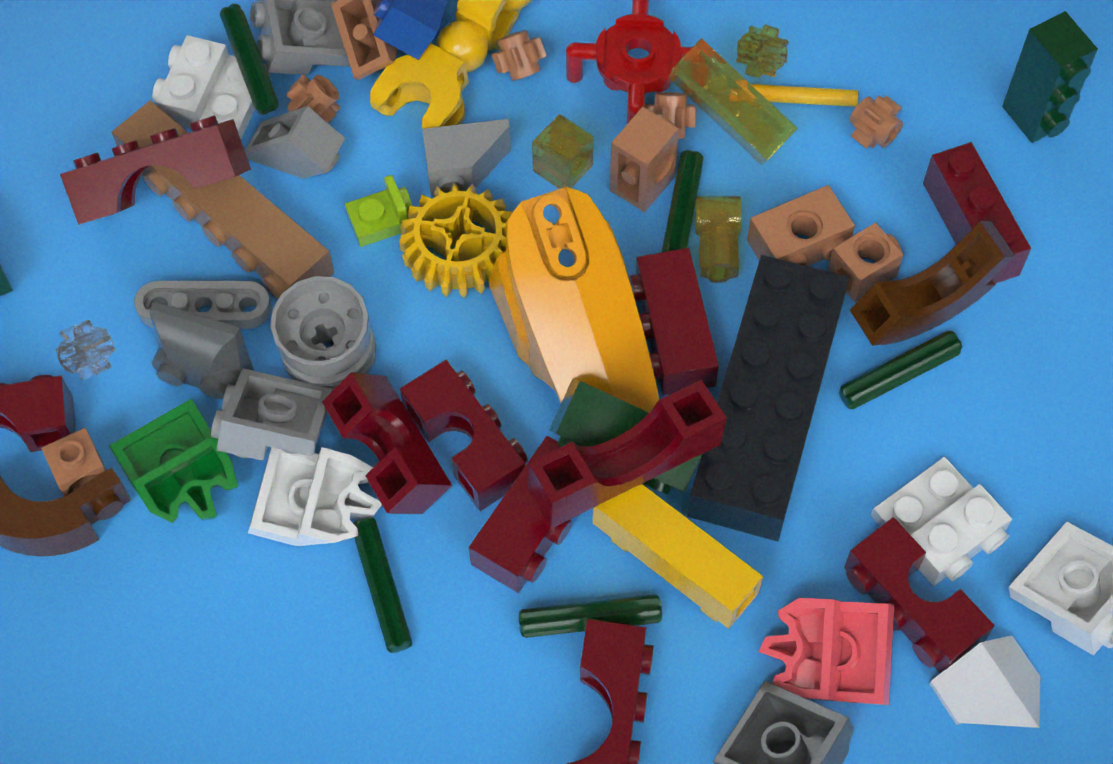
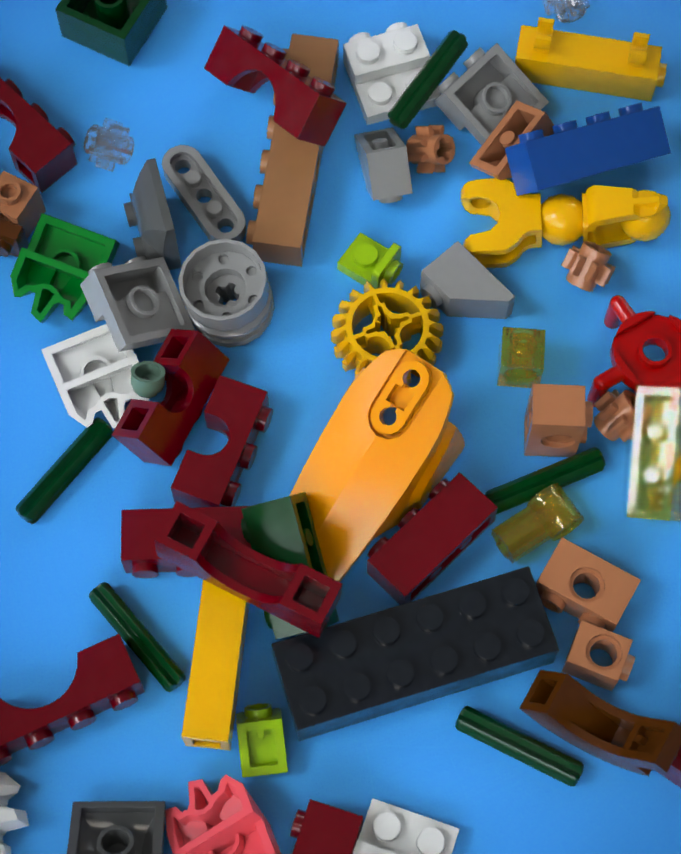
camera: 55 degrees right, 5 degrees up
(358, 448) = (147, 378): none -> sand green hinge
(772, 560) = (261, 740): none -> lime bracket

